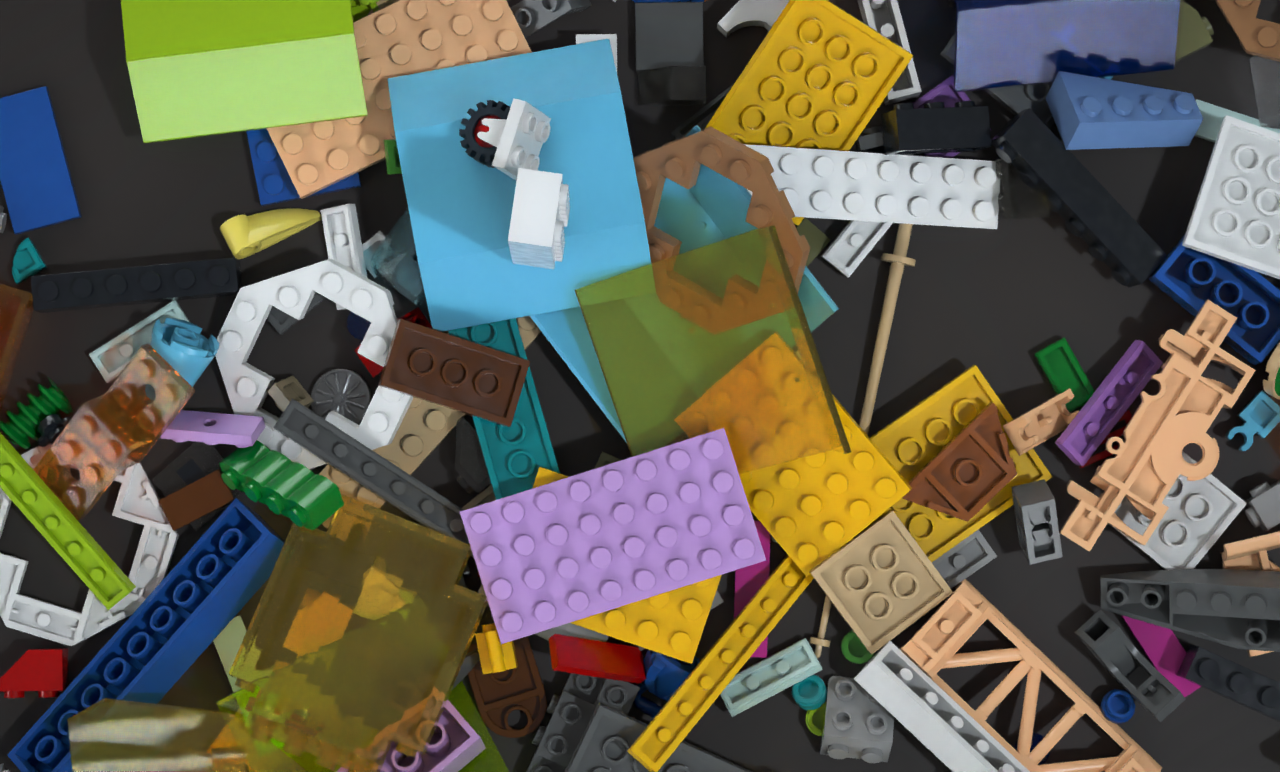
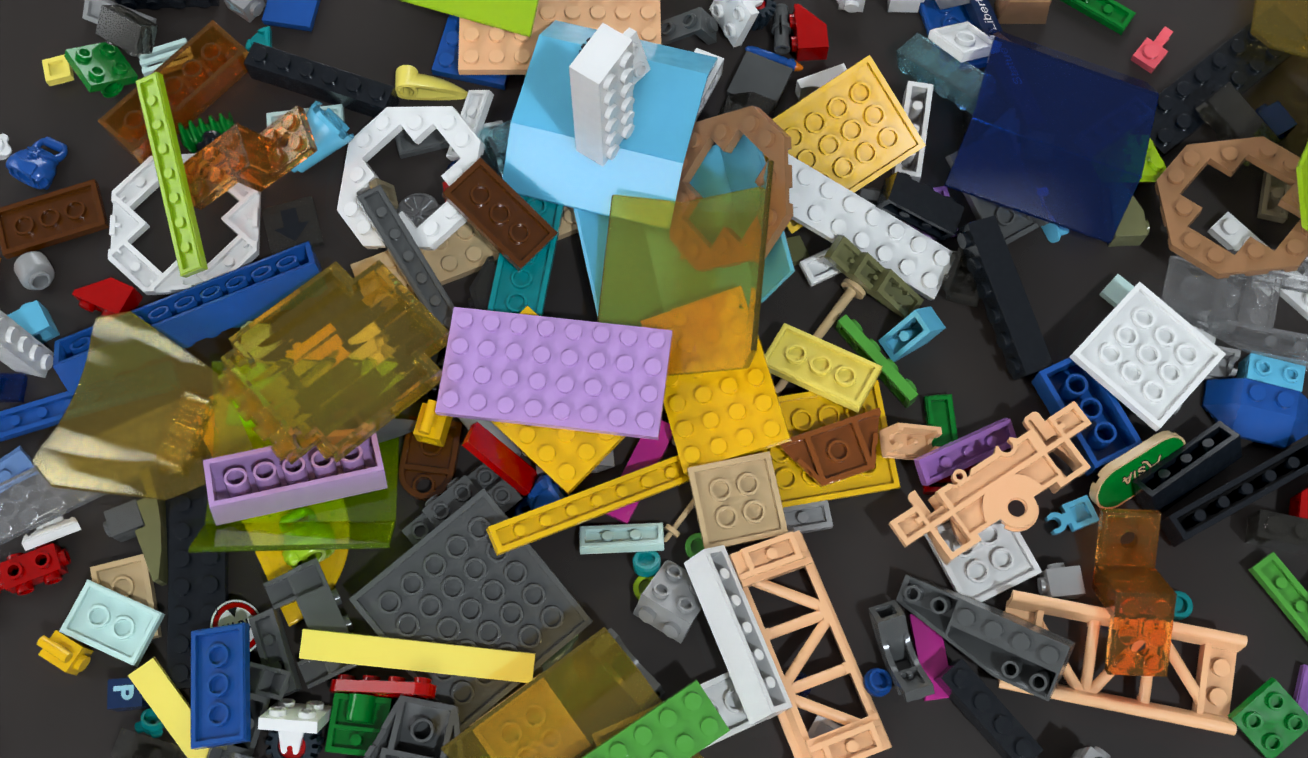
camera: 25 degrees right, 15 degrees down
(196, 500) = (282, 233): reddish brown tile -> none
(215, 428) = (318, 190): lavender tile -> none
(281, 485) = (341, 238): green brick -> none
(905, 379) = (822, 367): none -> light yellow tile
(918, 241) = (873, 277): none -> olive slope
(977, 343) = (867, 348): none -> bright green plate
(989, 285) = (911, 333): none -> medium azure slope
(1037, 521) = (874, 510): dark grey brick -> none
(1120, 114) = (1060, 253): medium blue wedge -> none

